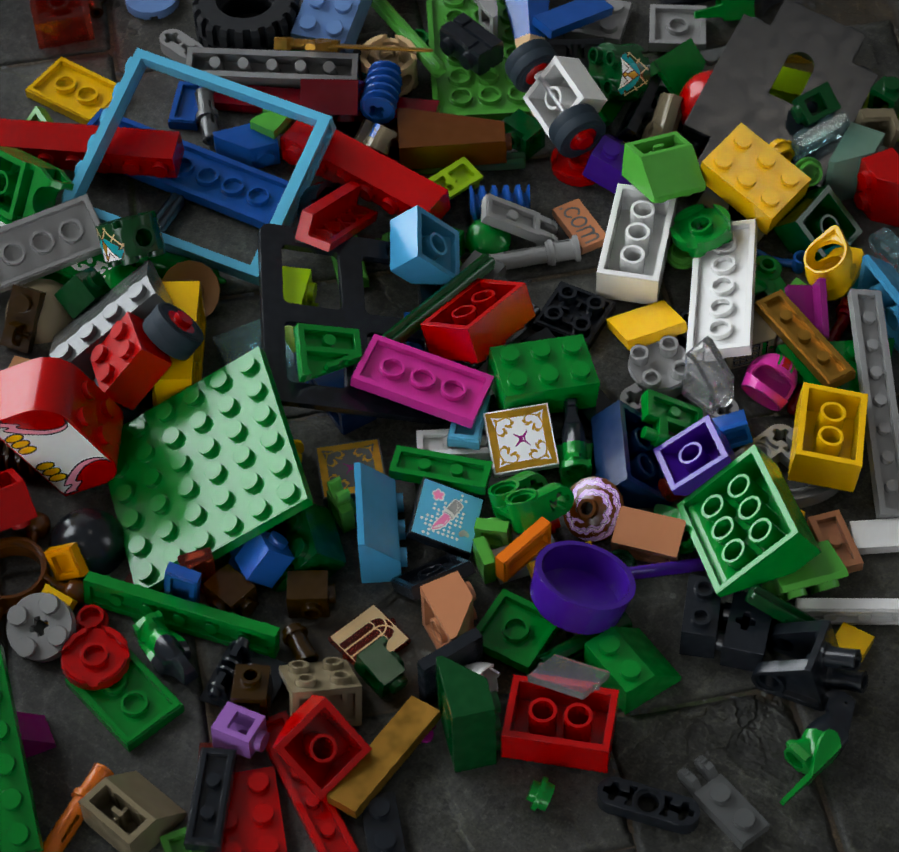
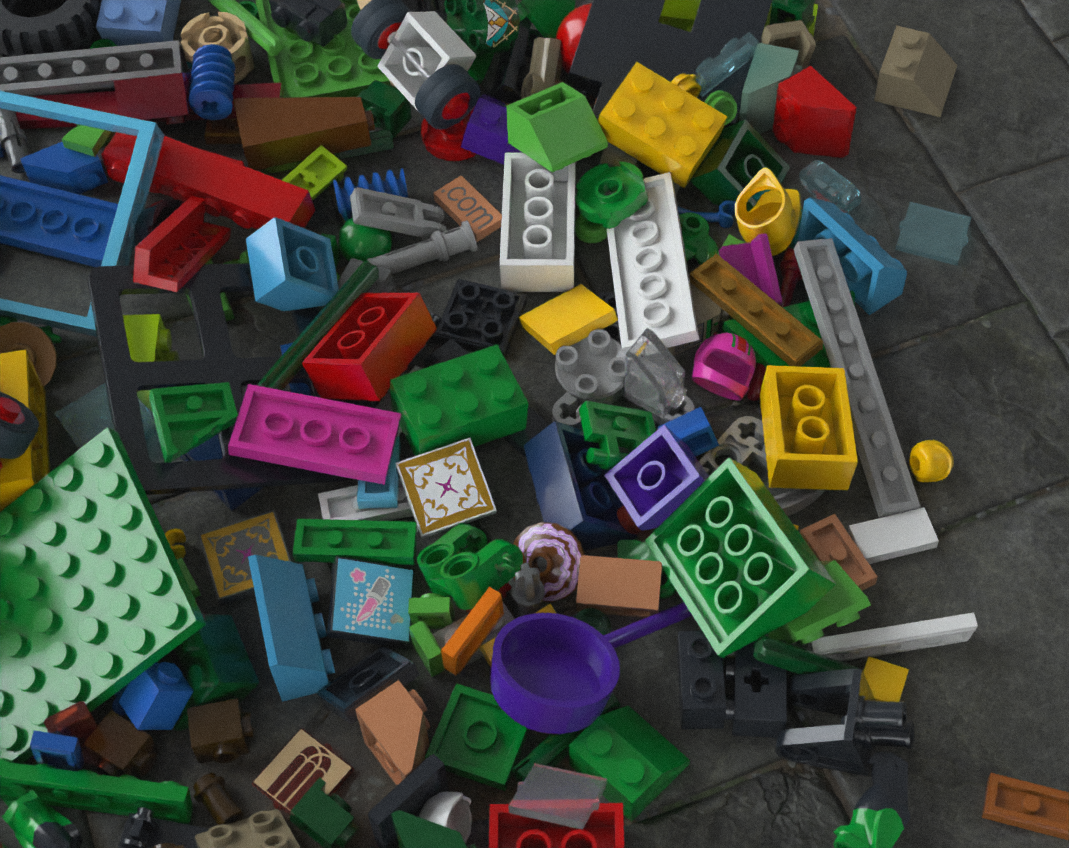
camera: 10 degrees left, 5 degrees up
(333, 45) = (148, 35): pearl gold sword -> none
(341, 504) = (241, 607): bright green plate -> none
(375, 136) = (213, 137): dark tan leg -> none
(573, 447) = (510, 487): green animal -> none
(573, 526) = (528, 590): none -> dark grey axle
(824, 100) = (723, 21): dark green brick -> none

